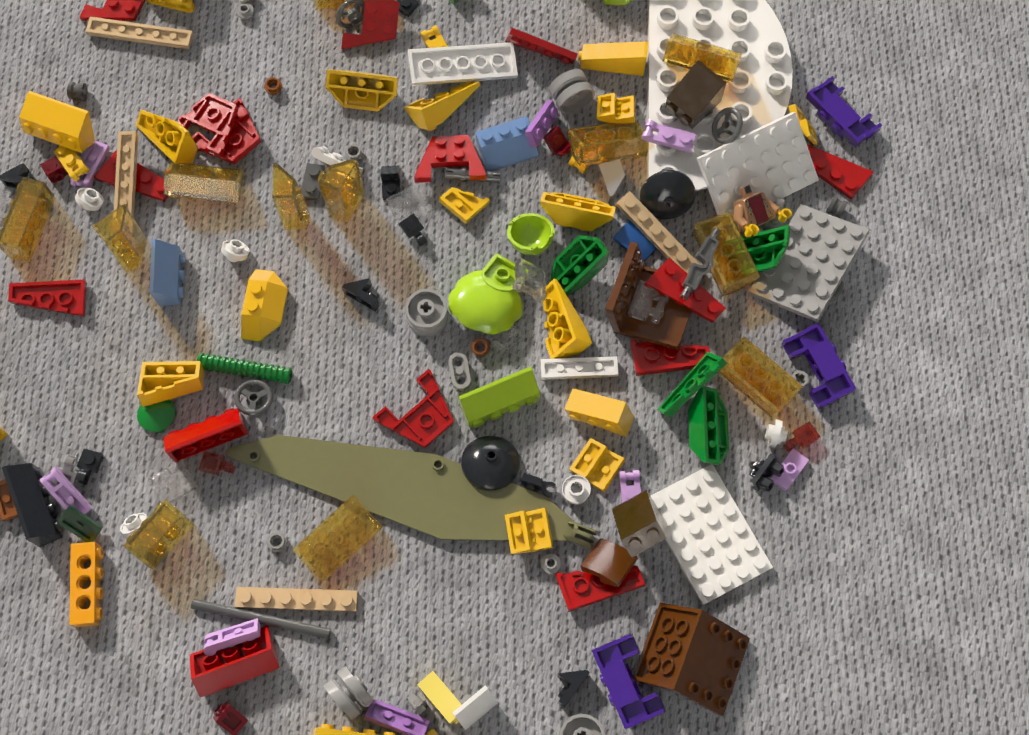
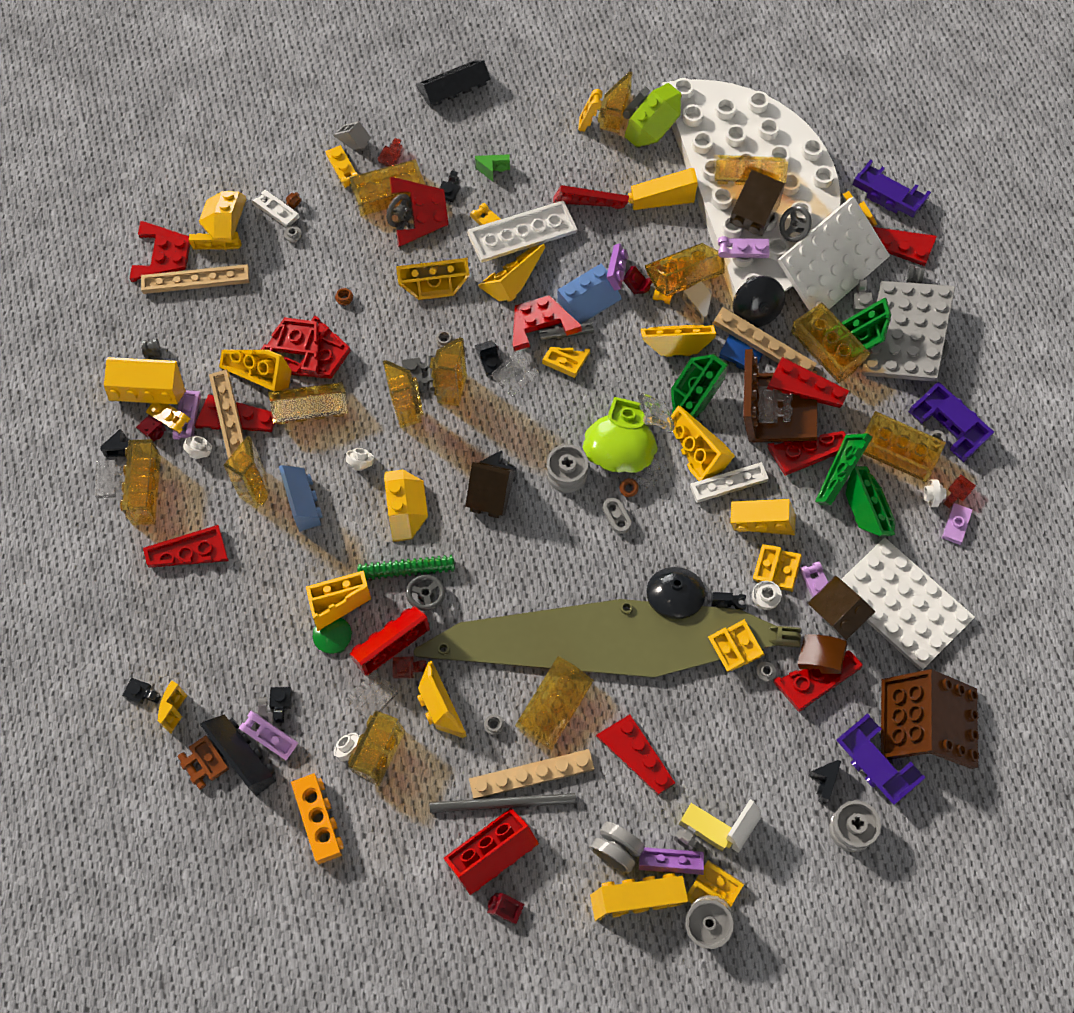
camera: 15 degrees left, 5 degrees down
(79, 524) = (292, 761): dark green plate -> none
(231, 506) = (438, 703): none -> yellow wedge
(231, 636) = (481, 827): lavender plate -> none
(323, 154) = (414, 347): white plate -> none
(344, 312) = (489, 489): none -> dark brown slope
(399, 602) = (633, 748): none -> red wing
(411, 227) = (526, 394): black plate -> none
(425, 420) = (599, 570): red wing -> none
(499, 397) = (665, 528): lime slope -> none
(530, 233) = (642, 370): lime cylinder -> none
(571, 91) = (635, 230): light grey wheel -> none
(615, 109) = (681, 238): yellow slope -> none
(697, 271) = (813, 363): dark grey piece -> none
(756, 210) = (845, 295): torso -> none
(762, 471) = (934, 532): black hips -> none

